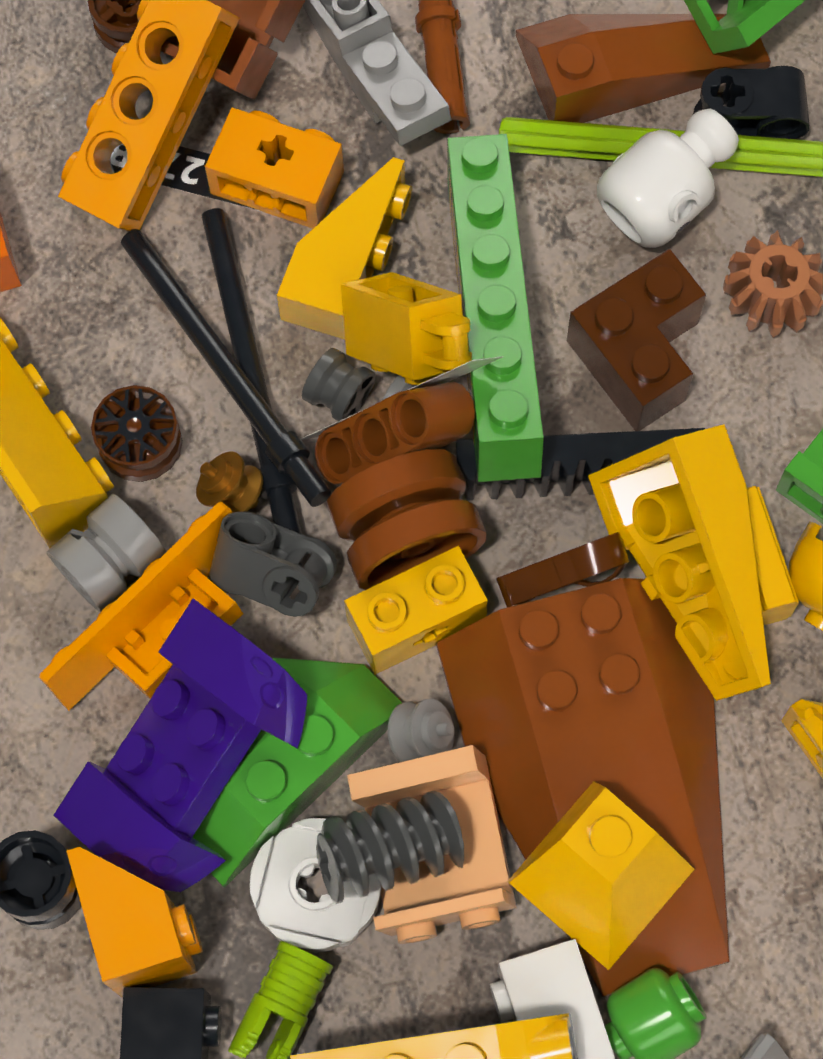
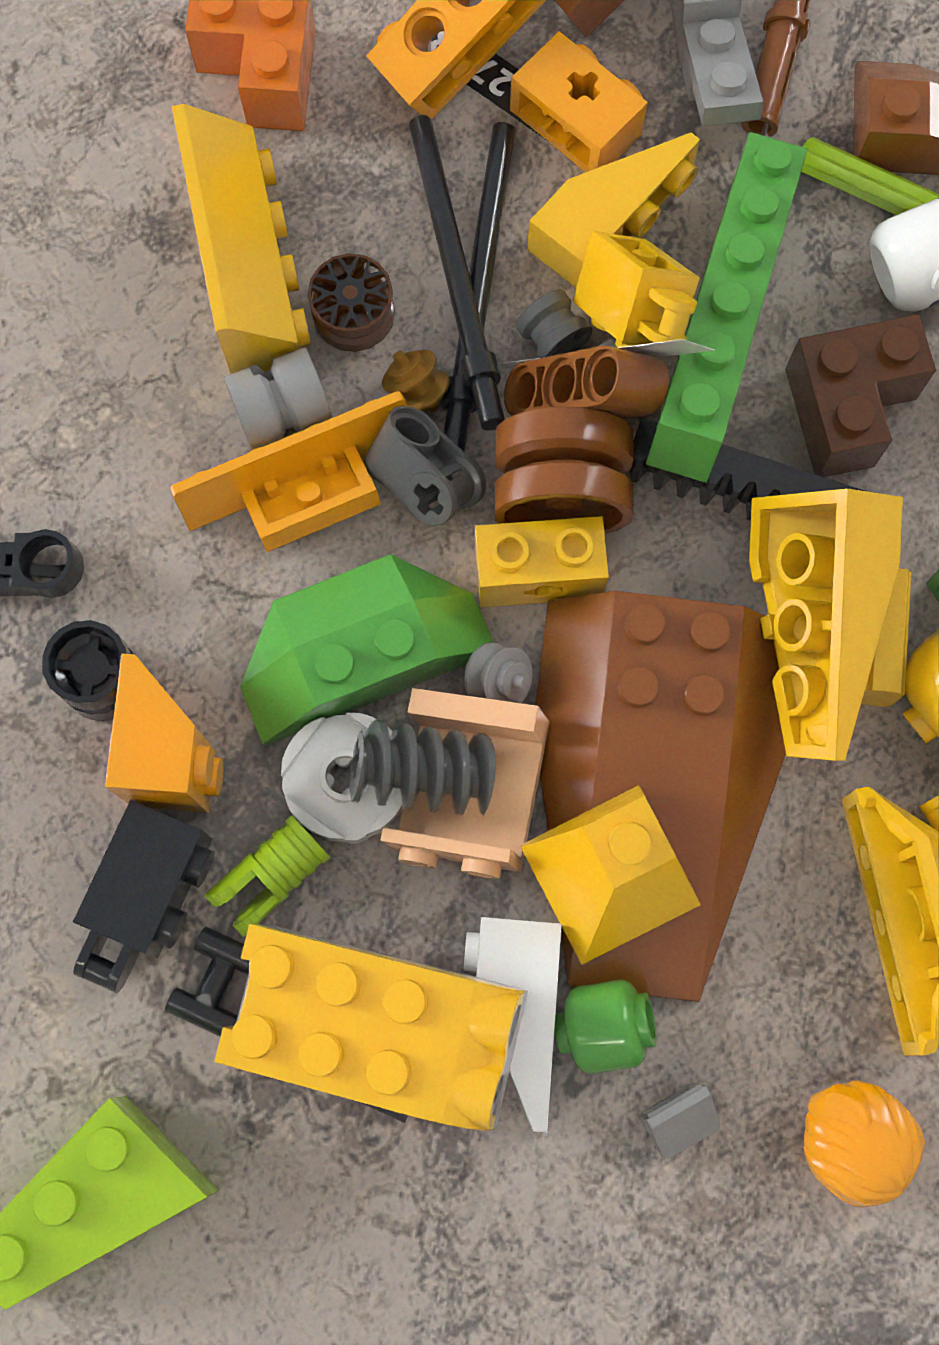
camera: 20 degrees right, 5 degrees up
(183, 753) = (270, 608): dark purple piece -> none
(565, 569) = (694, 577): reddish brown piece -> none

